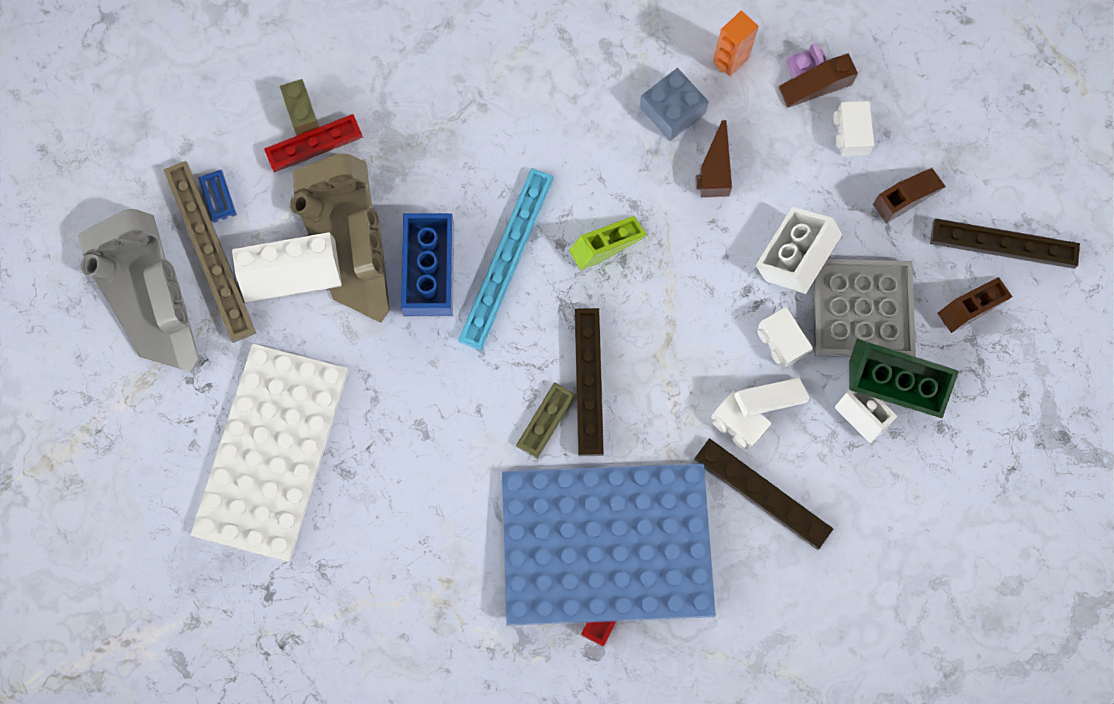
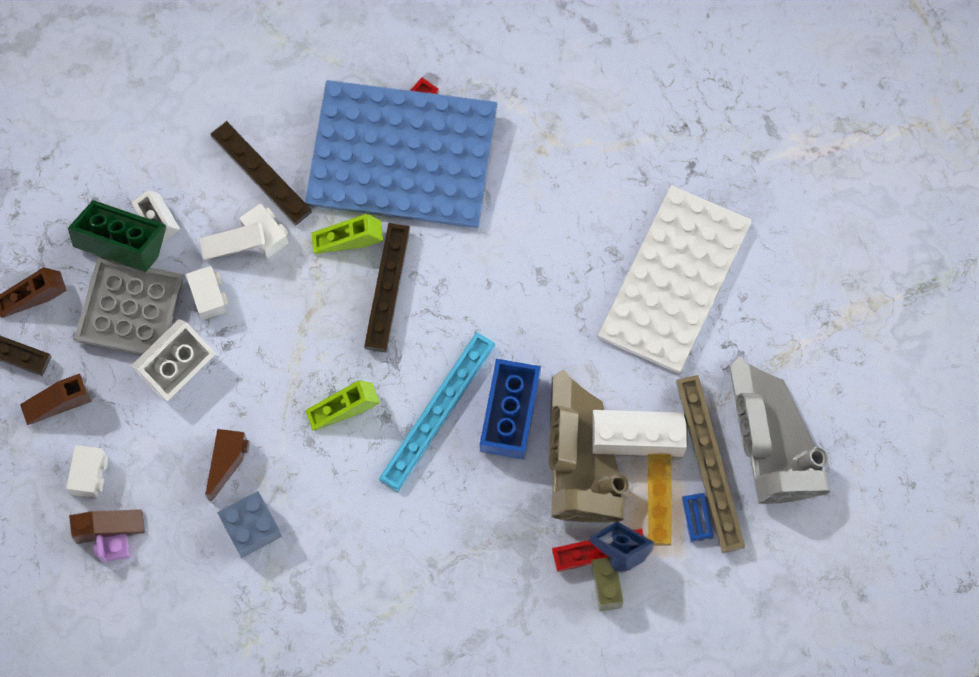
camera: 165 degrees left, 5 degrees down
(257, 200) = (659, 499): none -> clear yellow plate
(287, 136) = (622, 546): none -> dark blue slope
(545, 420) = (431, 263): olive tile -> none
(645, 431) = (347, 235): none -> lime slope
(735, 43) = (178, 559): orange brick -> none

